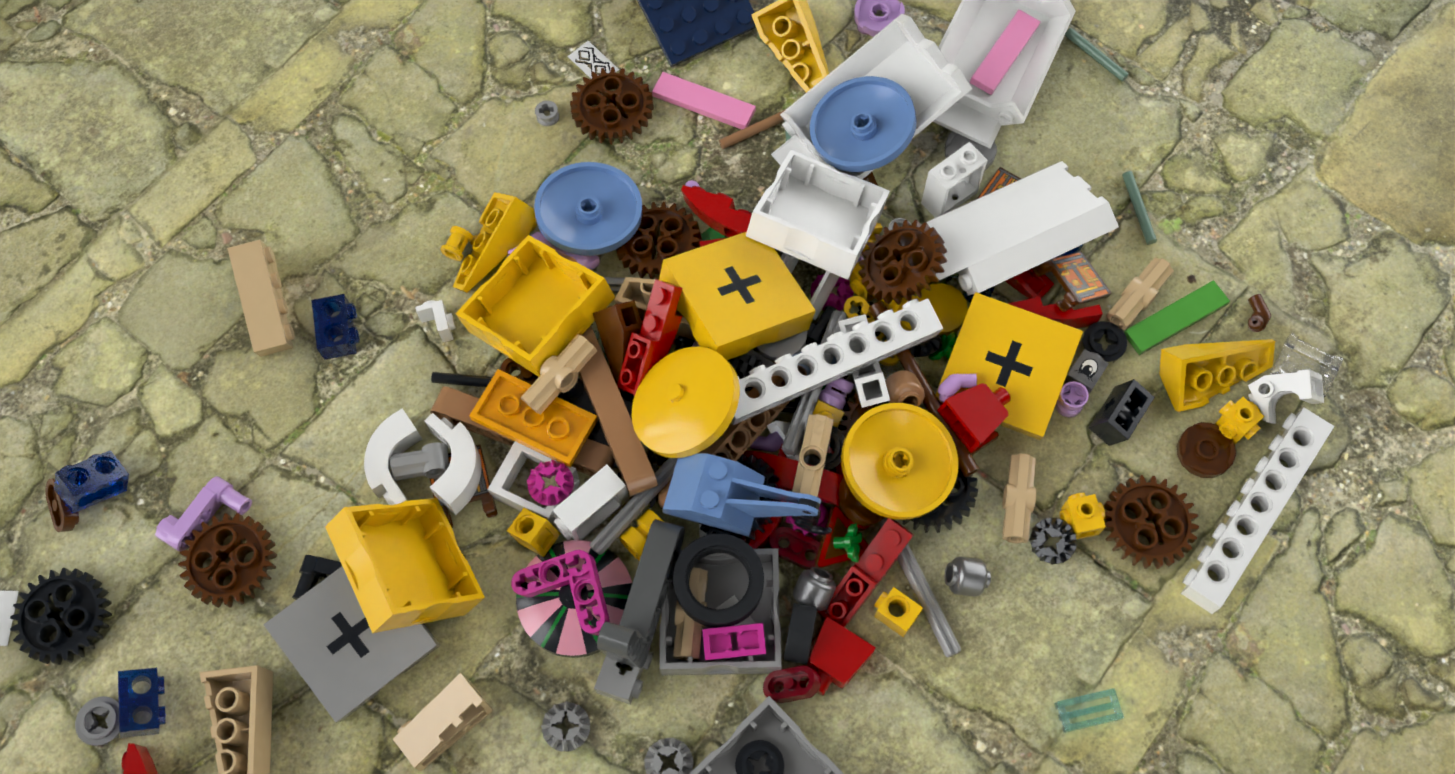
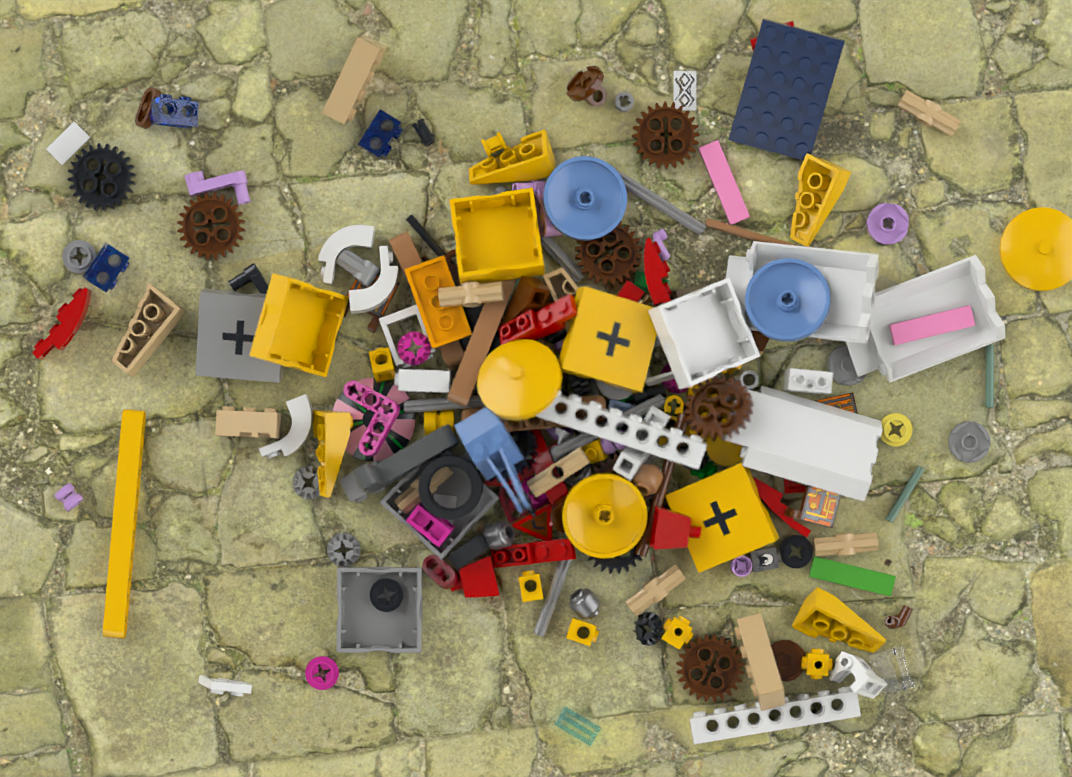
camera: 40 degrees right, 20 degrees up
(385, 292) = (424, 133): none -> black pin
(436, 311) = (443, 189): white bracket -> none
(499, 122) = (585, 84): none -> reddish brown tile
(507, 682) = (301, 427): none -> white arch
(542, 647) = (333, 432): none -> yellow wedge
(674, 162) = (662, 205): none -> light grey axle
(850, 542) = (539, 530): green plant -> none
(954, 383) = (679, 499): lavender arm -> none
(984, 616) = (575, 625): none -> yellow brick
(1079, 156) = (905, 430): none -> light yellow gear
(1121, 412) = (757, 599): black brick -> none
(1141, 119) = (969, 442): none -> light grey tile
(1194, 463) = (761, 662): none -> tan wedge

